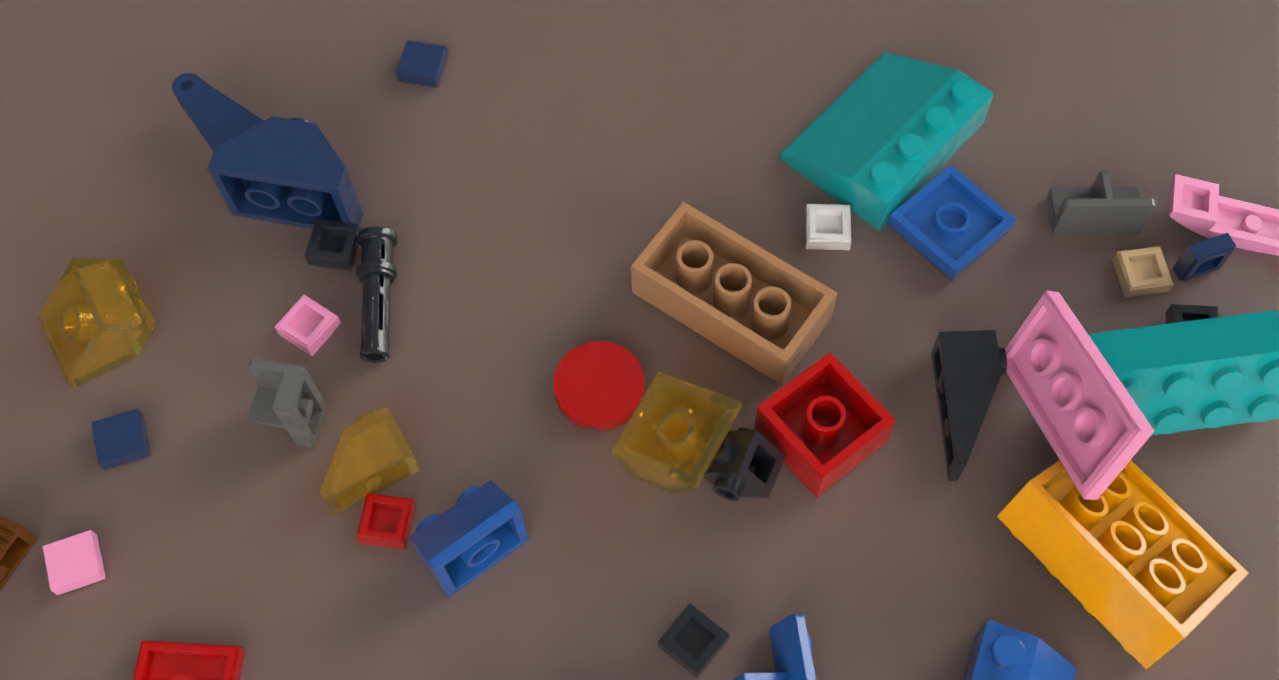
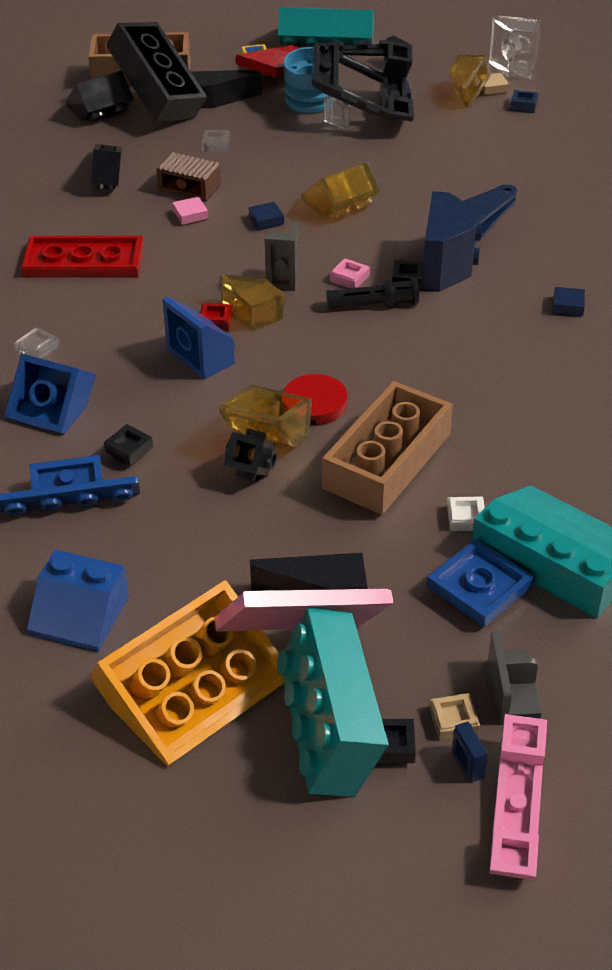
camera: 85 degrees right, 20 degrees down
(824, 424) = (282, 494): red brick -> none

